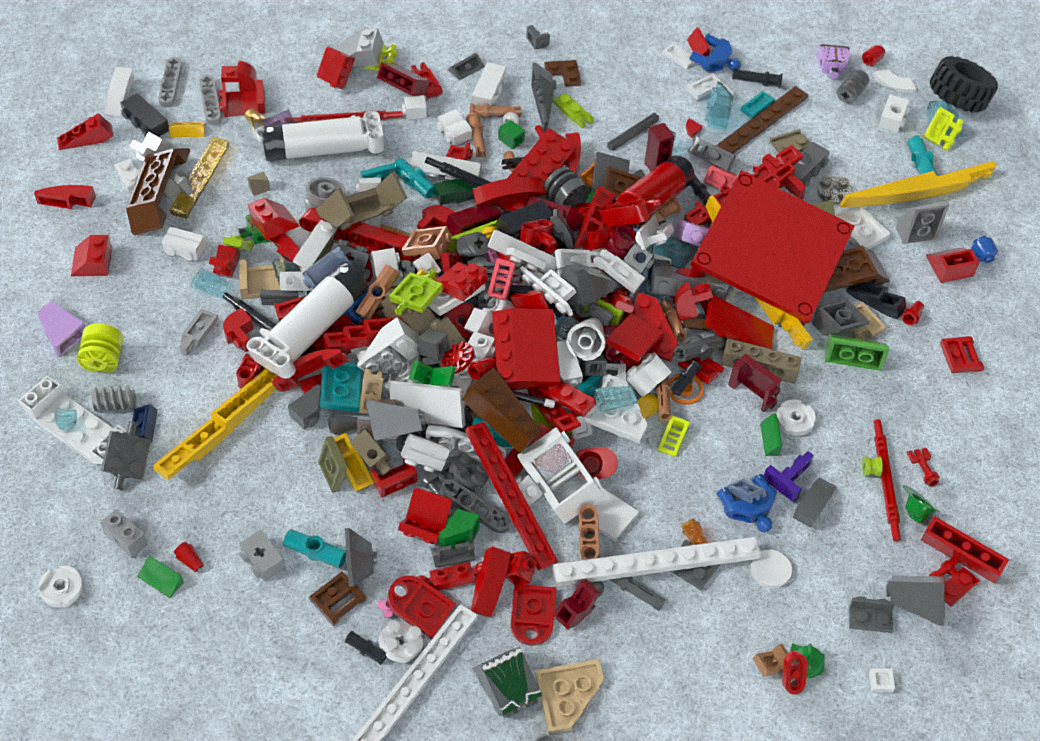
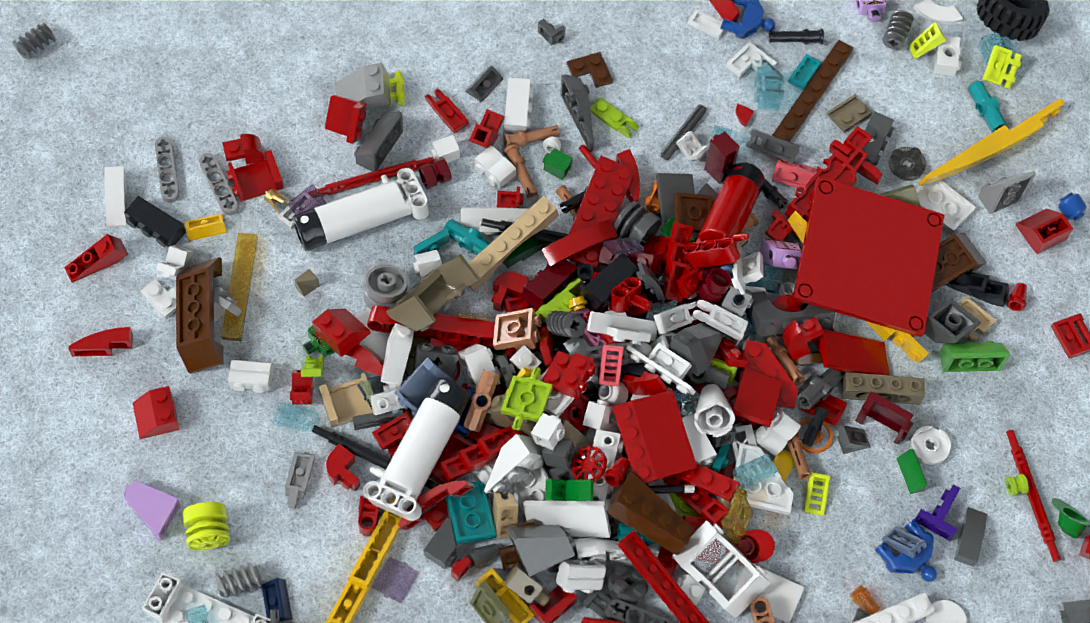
camera: 15 degrees left, 10 degrees up
(256, 429) = (395, 580): none -> clear purple piece
(318, 429) = (460, 567): none -> red plate
(360, 90) = (380, 141): none -> dark grey slope
(393, 124) = (435, 173): none -> dark red wheel
(403, 79) = (425, 118): dark red brick -> none
(426, 320) = (548, 431): none -> white brick
(456, 98) = (487, 132): none -> red brick
(472, 165) = (527, 225): none -> tan arch
(546, 197) = (623, 246): none -> clear purple piece
(586, 437) = (738, 516): none -> clear yellow plate
(635, 142) = (691, 147): none -> white bracket
(720, 397) = (852, 439): none -> dark grey slope
(878, 97) = (930, 37): none -> neon yellow slope
(930, 478) = (1074, 485): red hinge -> none

